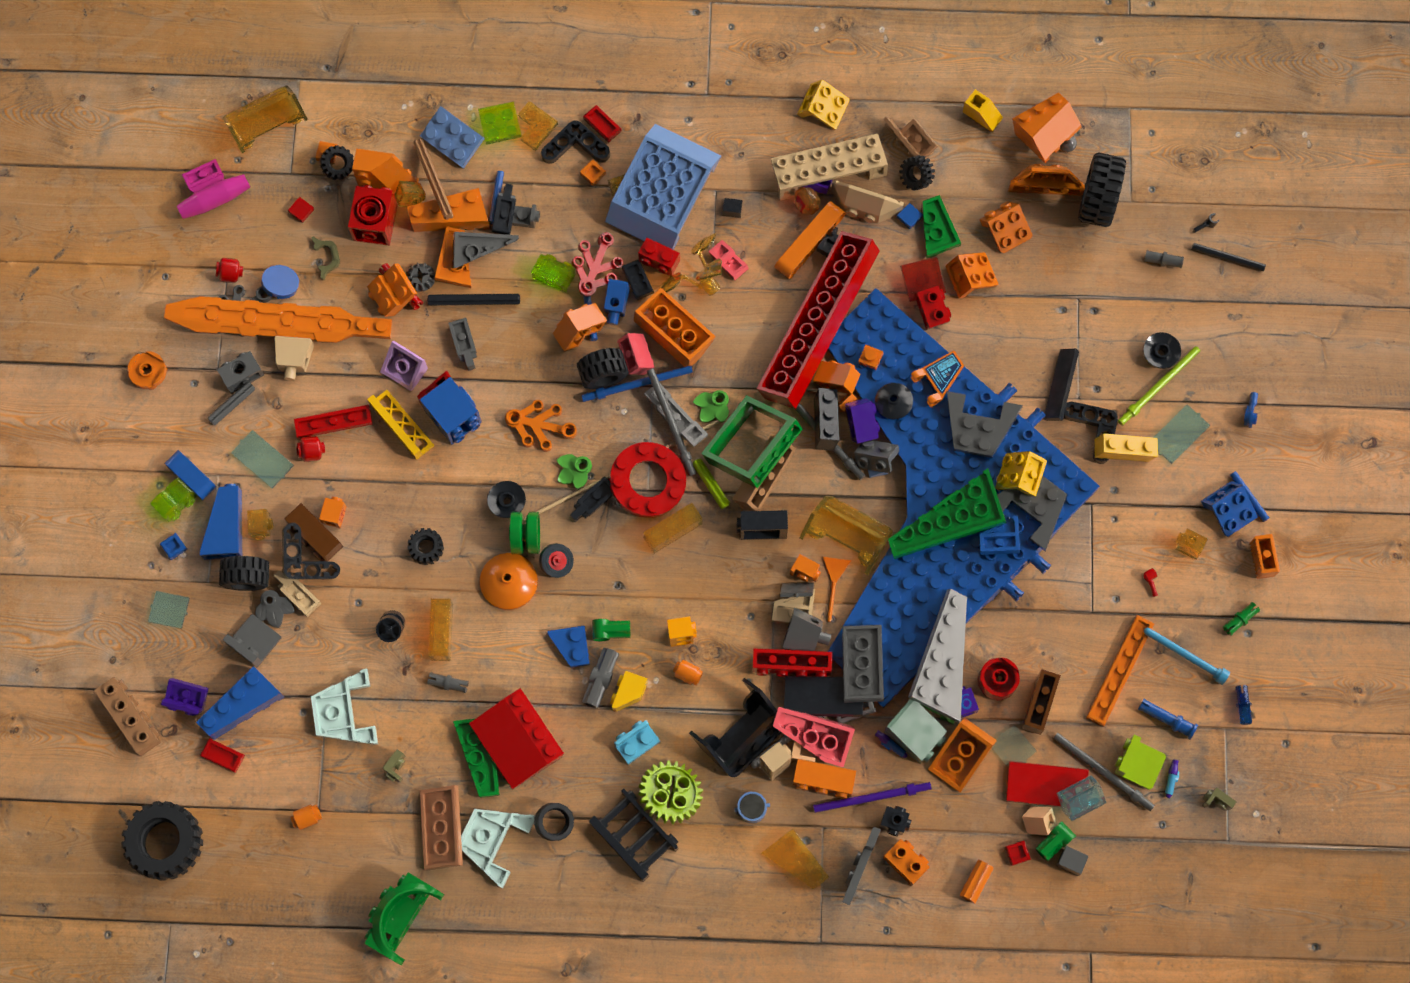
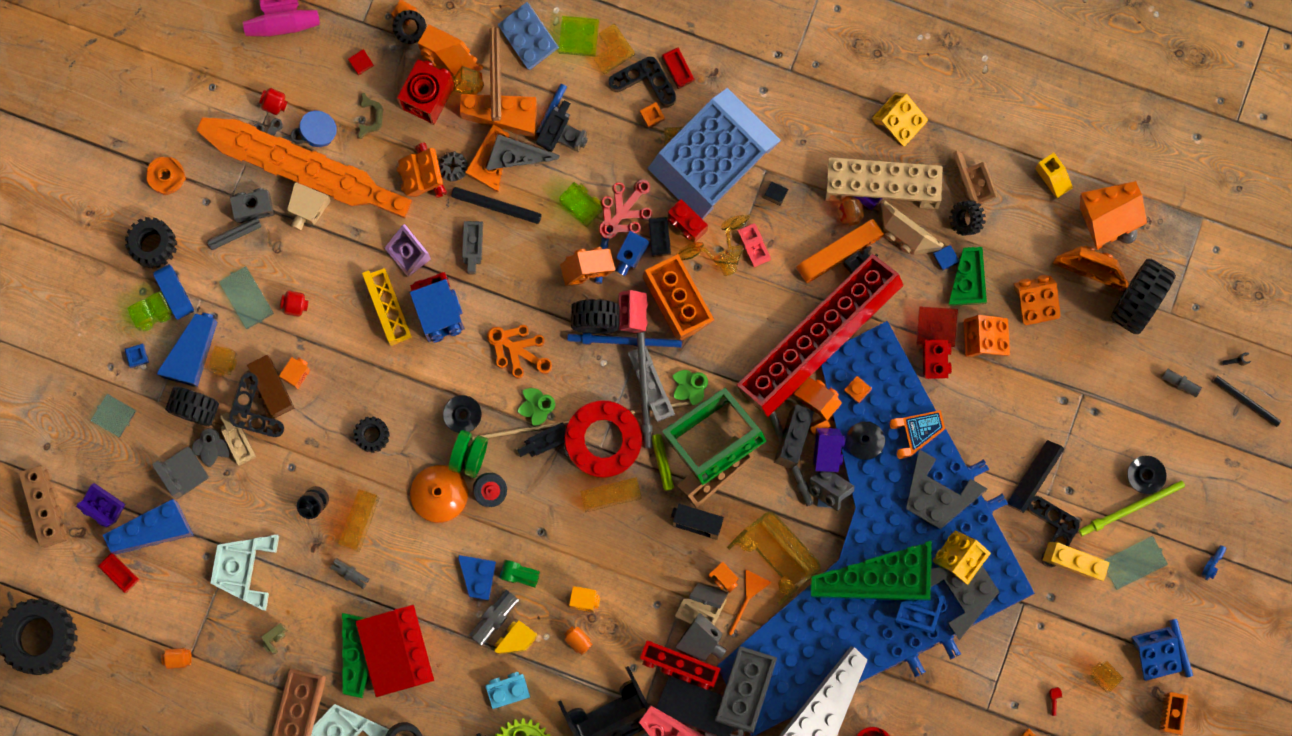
camera: 20 degrees right, 5 degrees up
(146, 423) = (140, 232): none -> black tyre
(333, 421) = (324, 283): red plate -> none

